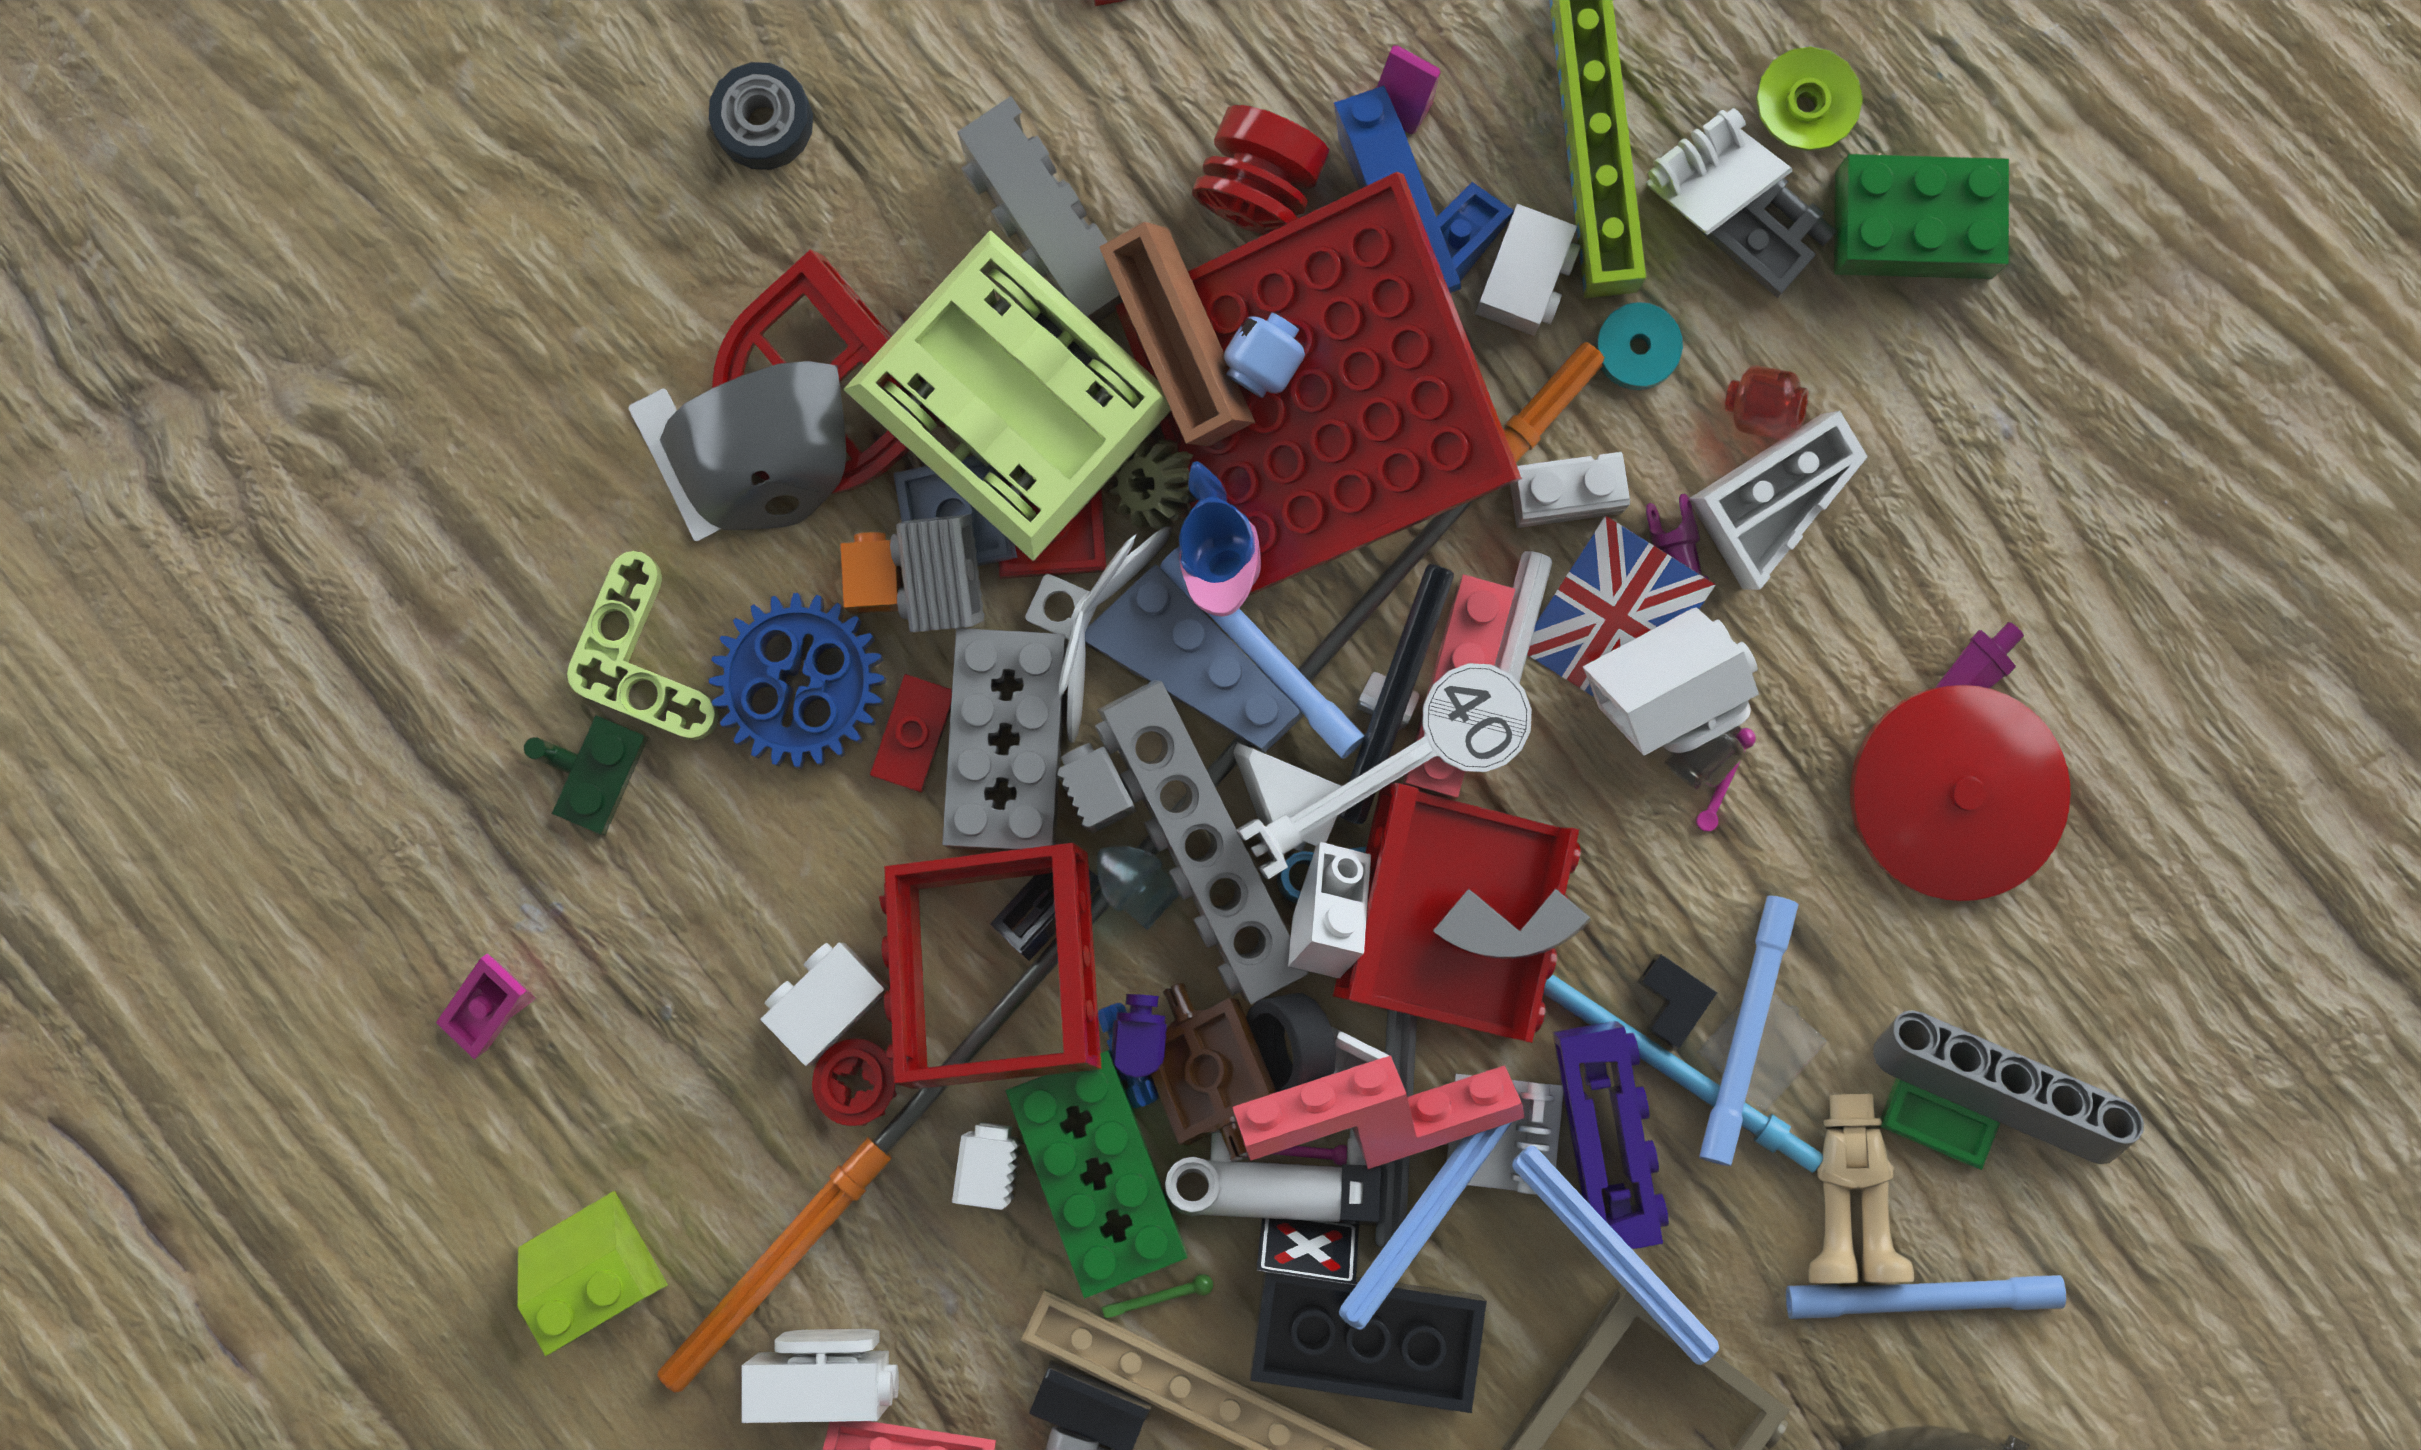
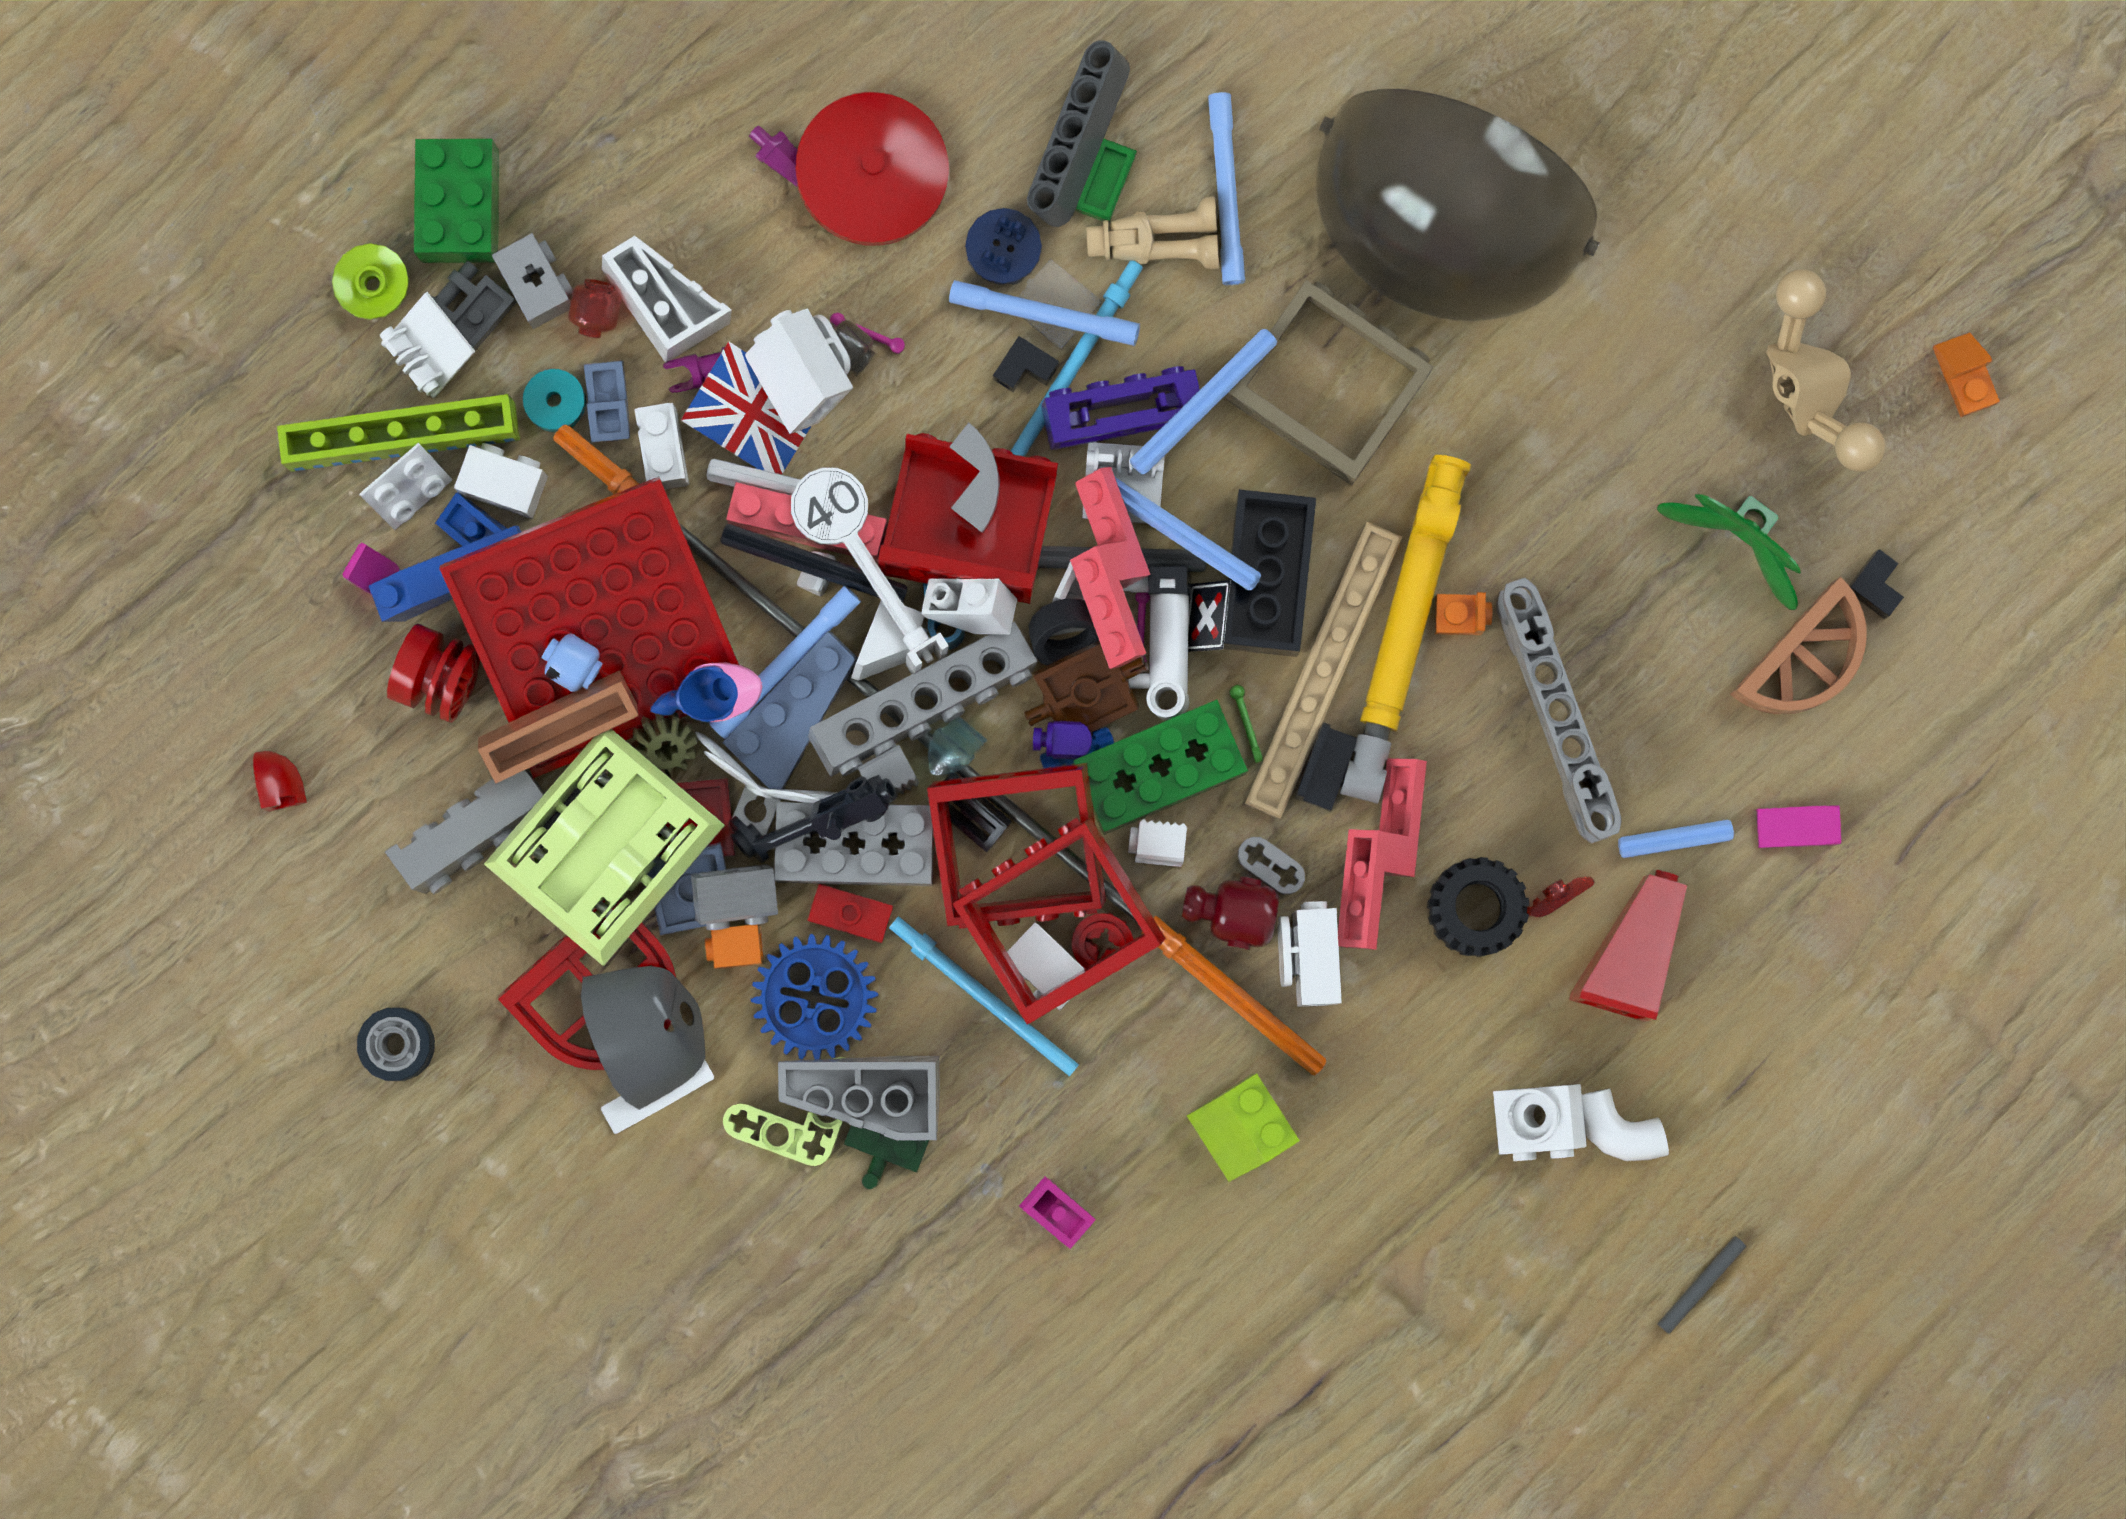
camera: 90 degrees left, 0 degrees up
(659, 762) = (874, 1093): none -> light grey wedge
(760, 986) = (997, 956): none -> red window
(861, 834) = (925, 947): none -> medium azure bar
(889, 1276) = (1239, 912): none -> dark red piece
(944, 1316) = (1276, 858): none -> light grey beam
(1035, 705) = (858, 802): none -> black piece
(1521, 140) = (406, 486): none -> white hinge
(1636, 418) = (607, 401): none -> sand blue slope
(1822, 964) = (995, 262): none -> dark blue plate
(1828, 298) = (517, 265): none -> light grey brick

